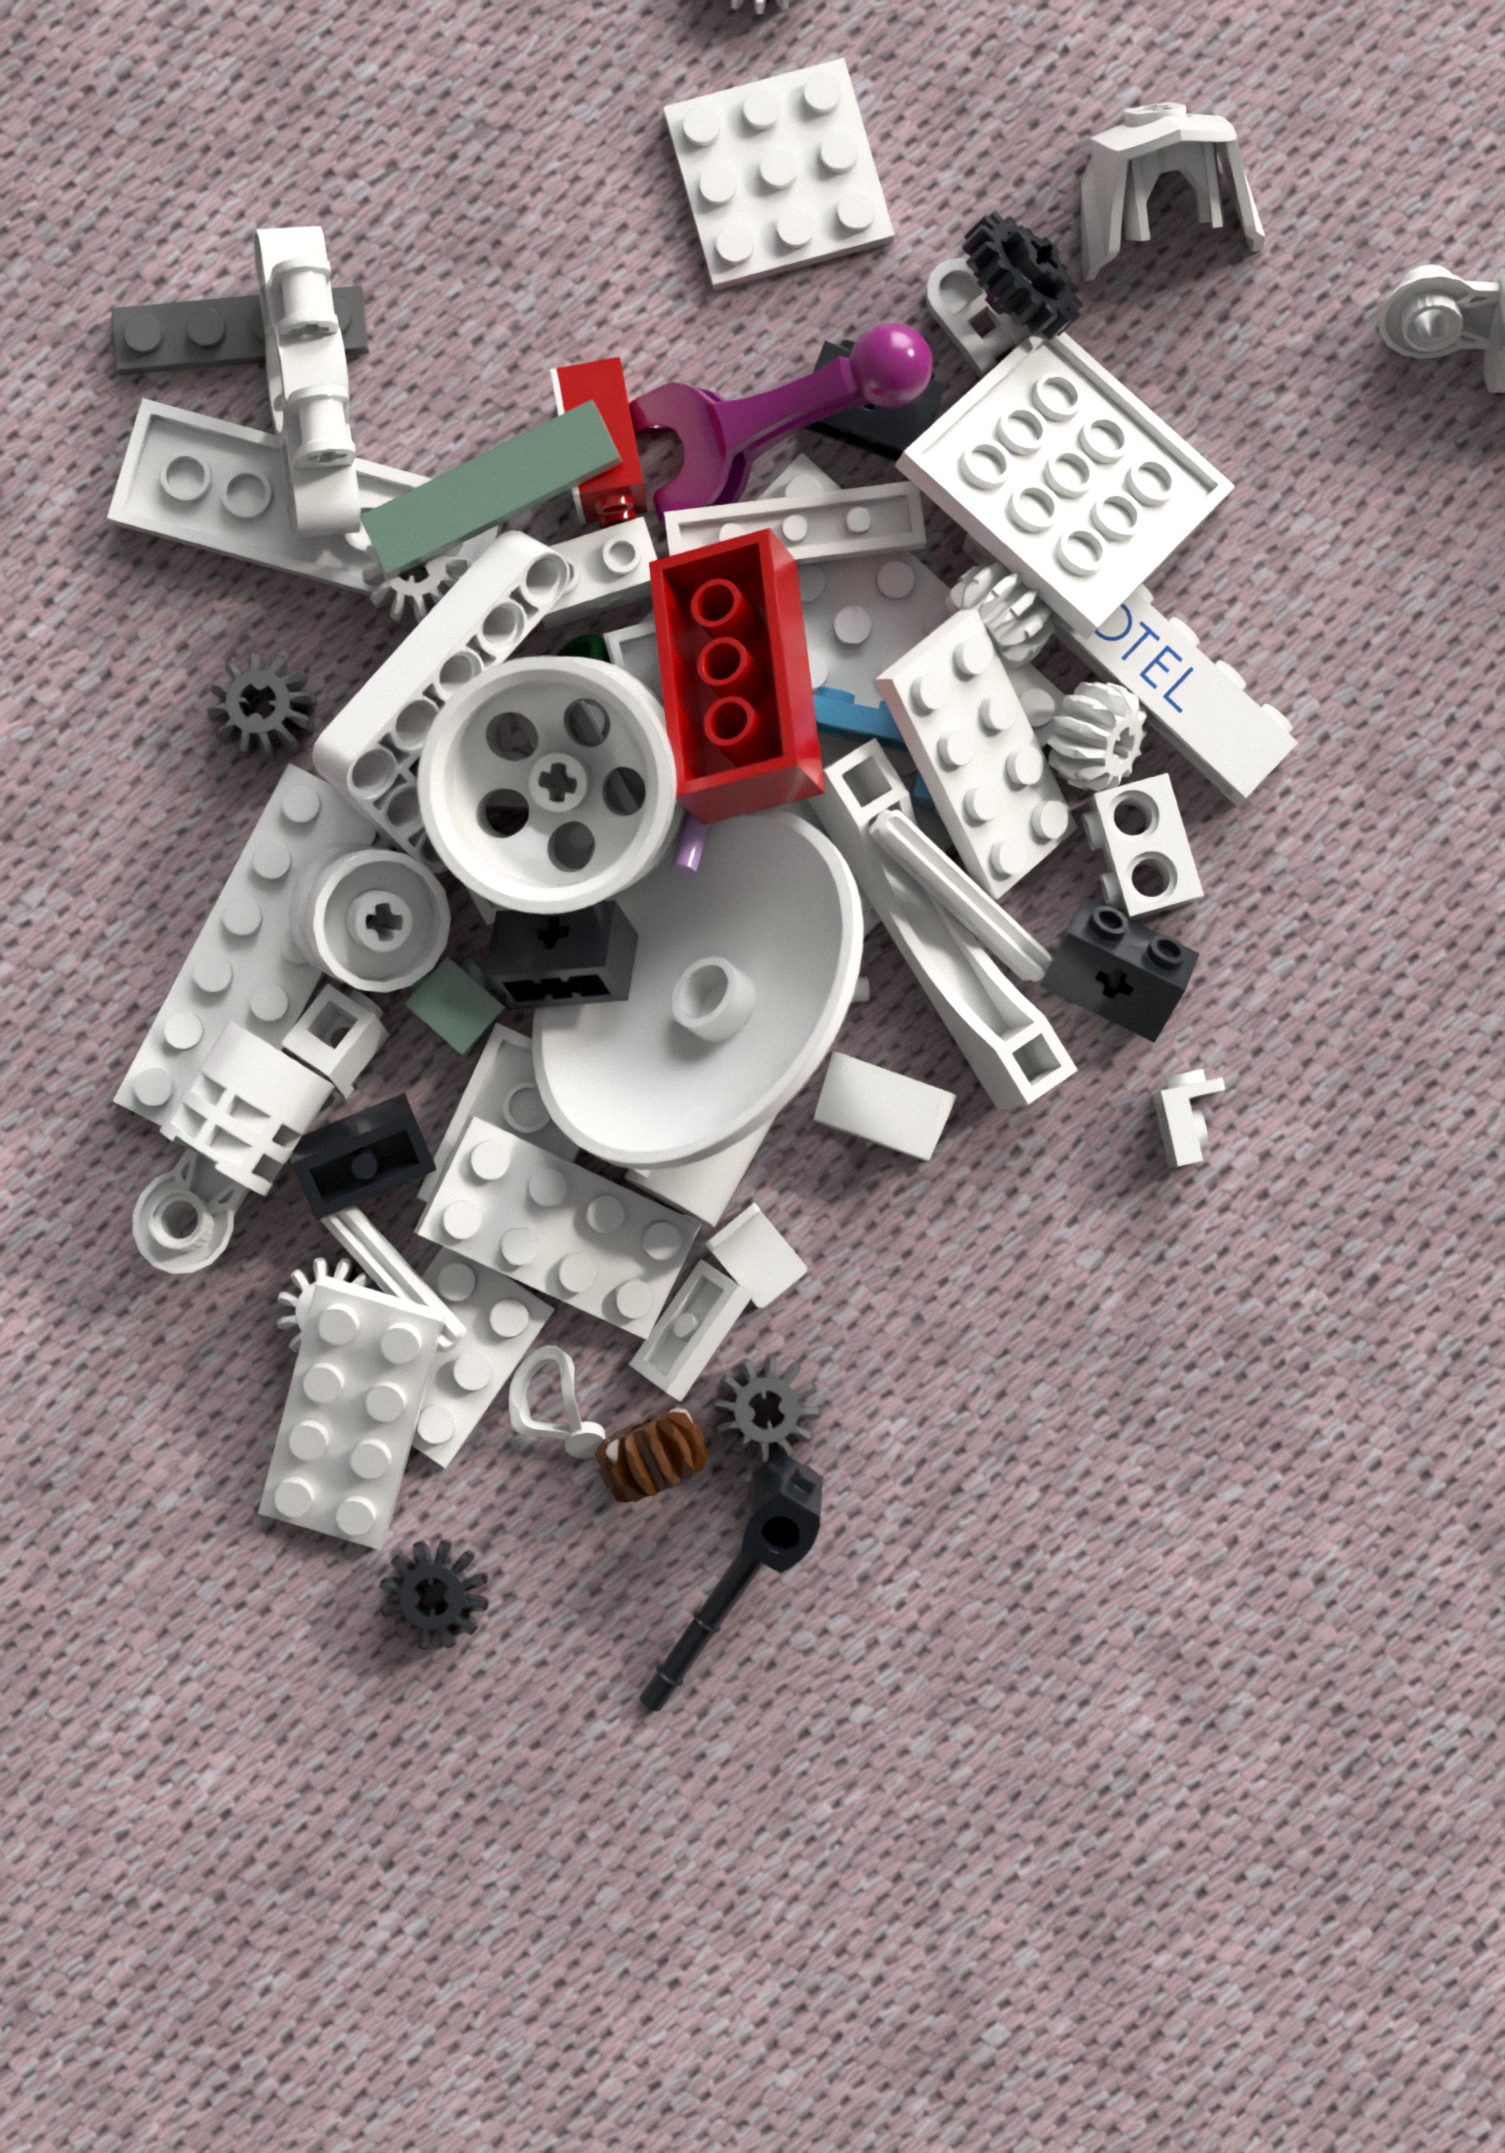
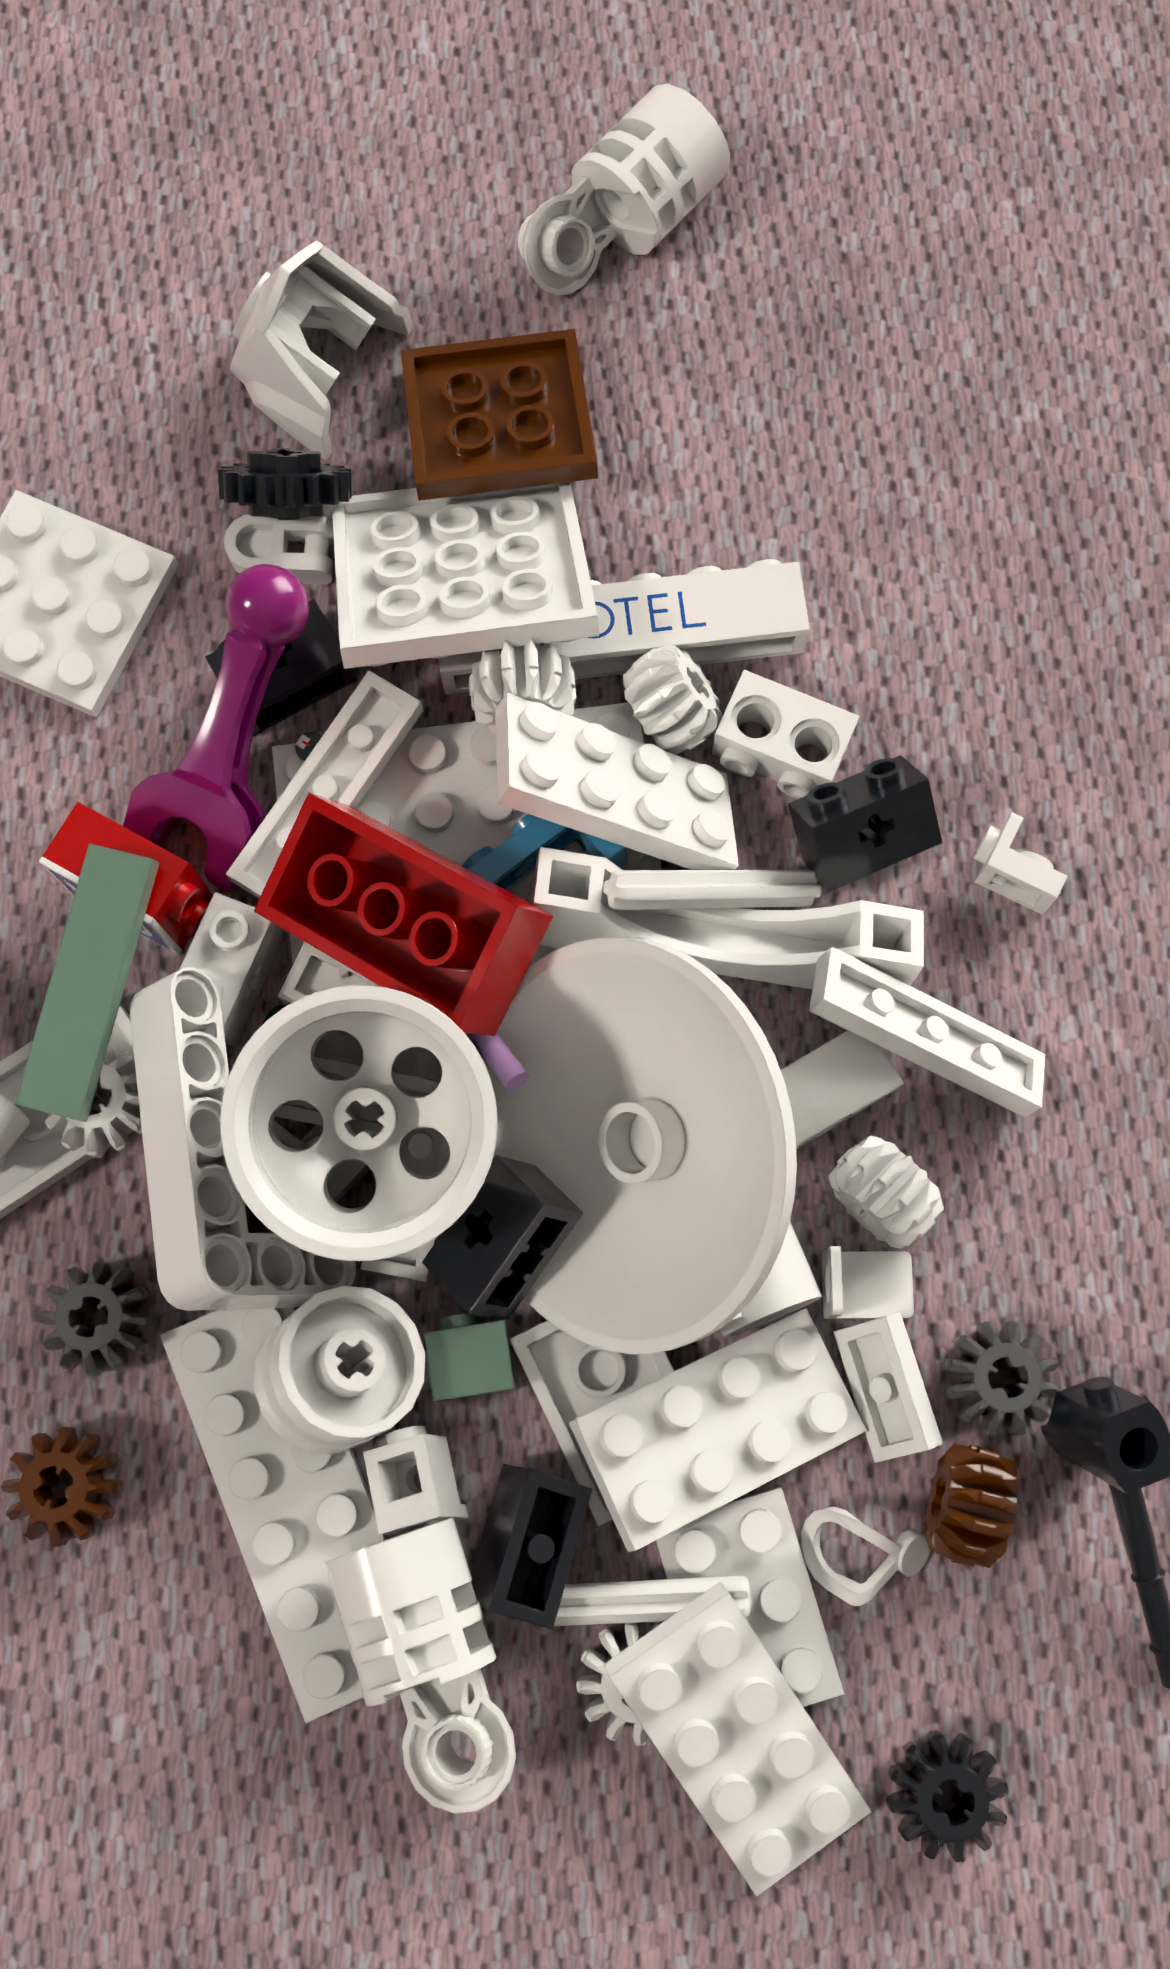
camera: 50 degrees left, 10 degrees down
(133, 807) = (83, 1498): none -> reddish brown gear
(822, 482) = (306, 743): none -> black piece
(834, 1214) = (886, 1192): none -> white gear
(983, 1149) = (927, 1032): none -> white plate
(1232, 391) = (498, 414): none -> reddish brown plate

